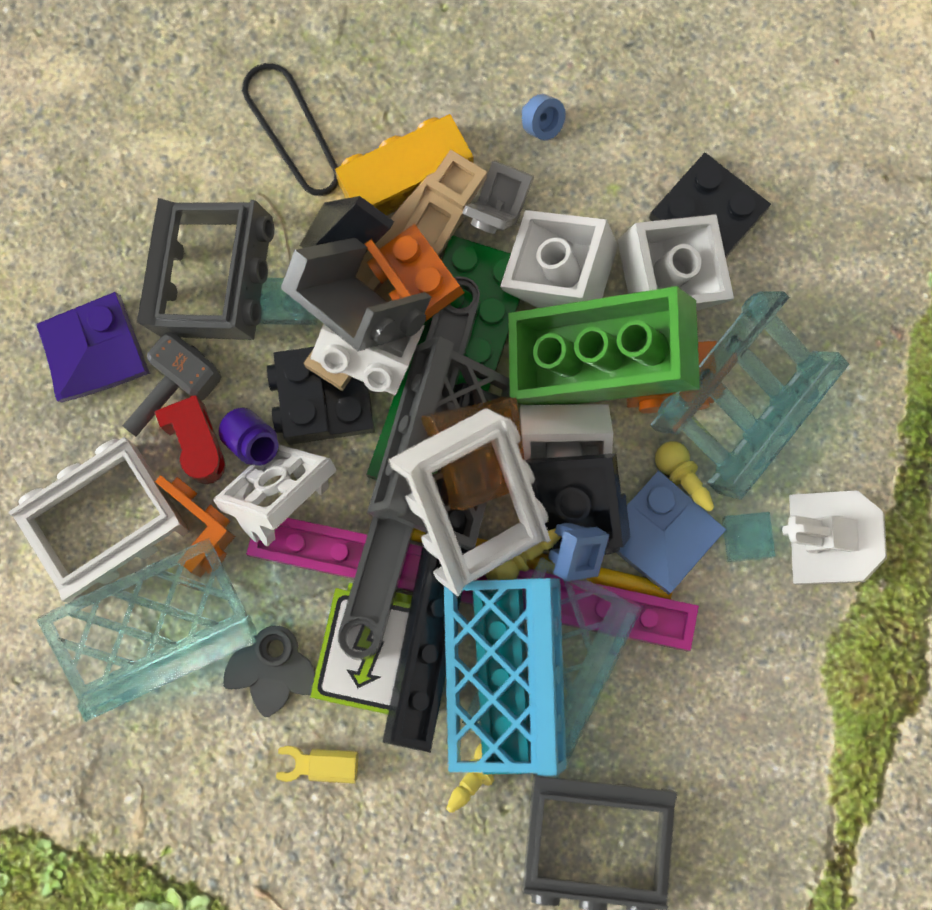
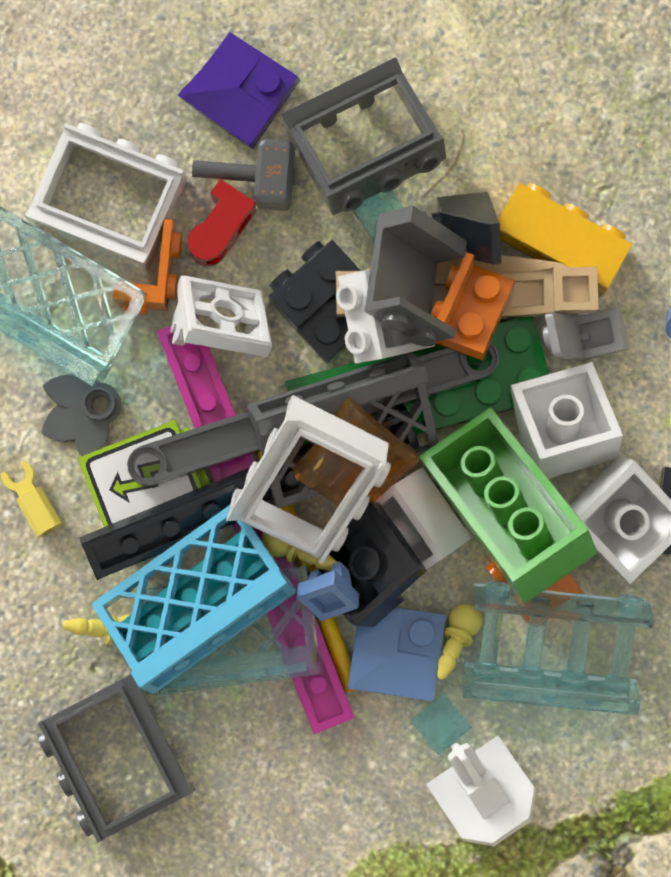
camera: 50 degrees right, 5 degrees up
(248, 437) = (250, 267): dark purple brick -> none
(318, 192) = (555, 130): black piece -> none

